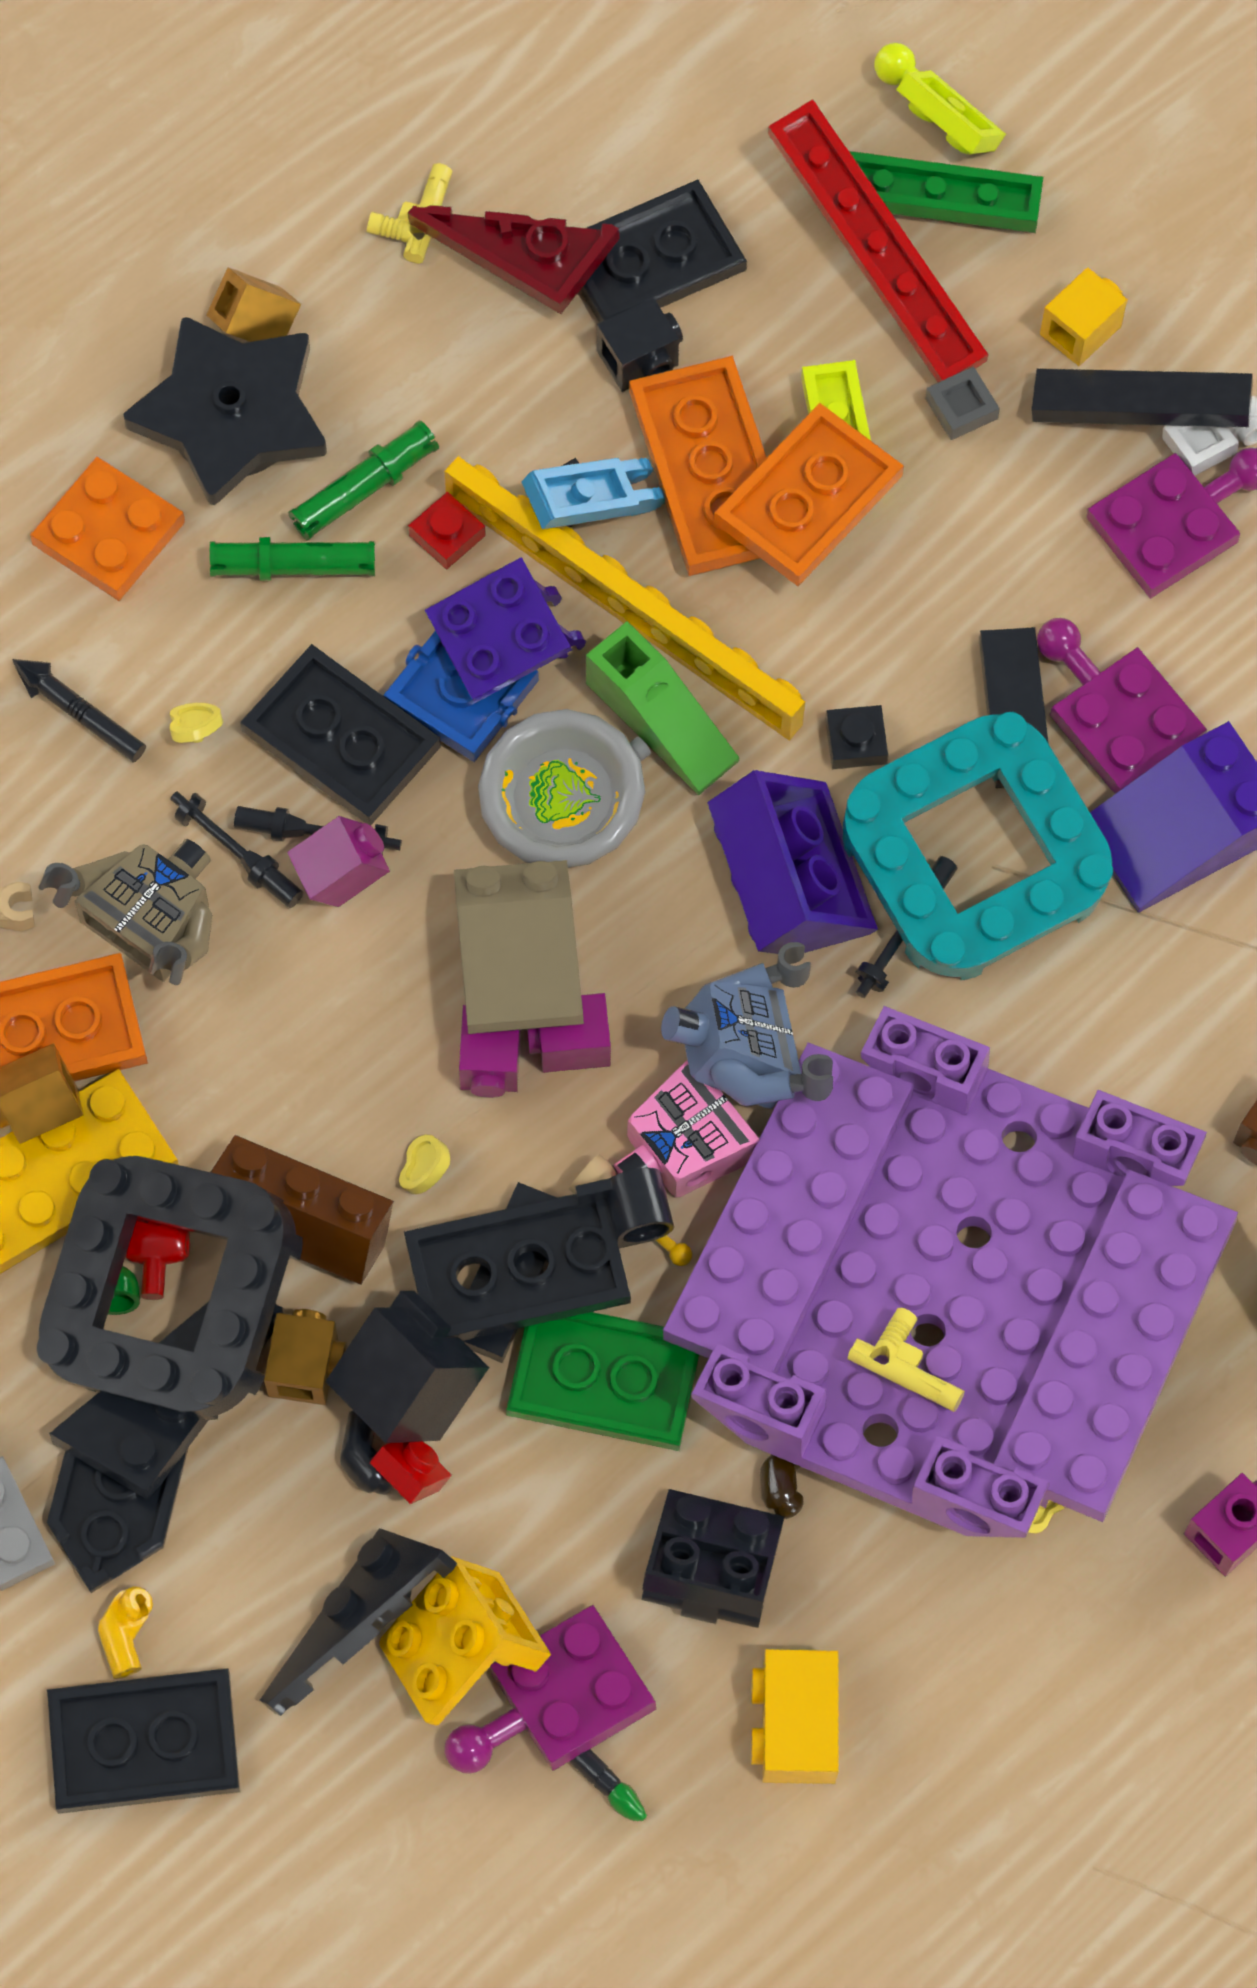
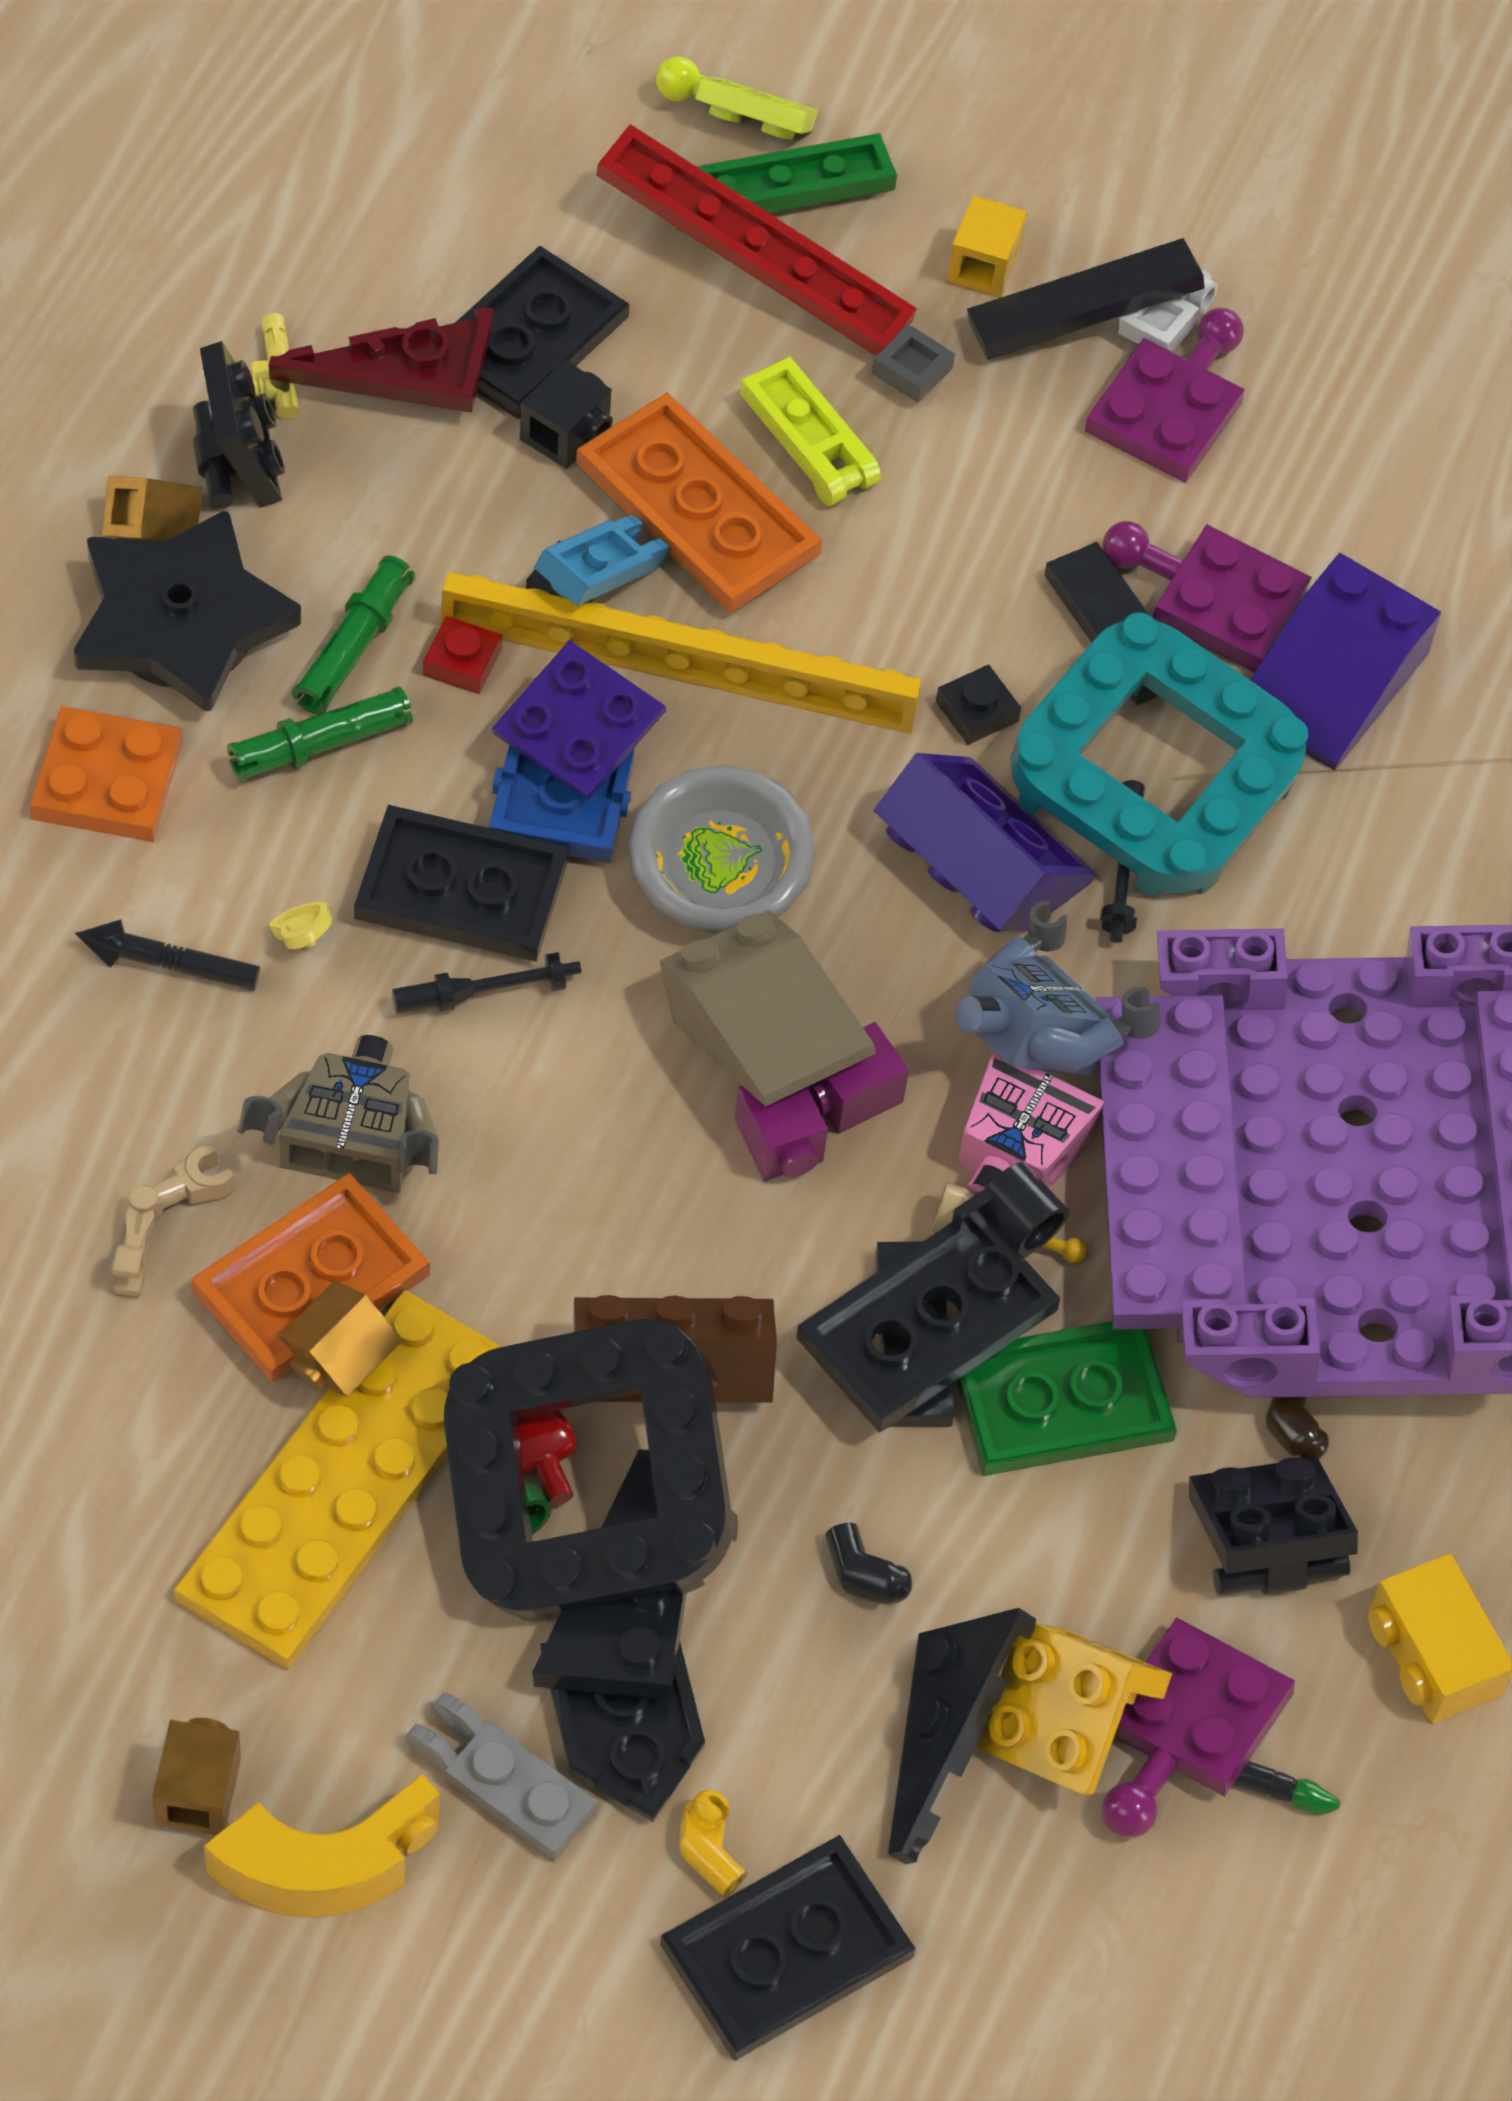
camera: 30 degrees left, 10 degrees down
(261, 870) = (448, 1042): black piece -> none
(302, 1356) = (761, 1495): pearl gold brick -> none
(339, 861) = (533, 997): magenta brick -> none
(351, 264) = (235, 432): none -> black plate
(406, 1372) = (876, 1458): black plate -> none
(411, 1469) = (924, 1556): red plate -> none
(425, 1164) = (773, 1262): light yellow piece -> none
(658, 707) = (764, 731): bright green slope -> none
(808, 494) = (819, 488): orange plate -> none
(904, 1362) = (1369, 1248): light yellow hose -> none

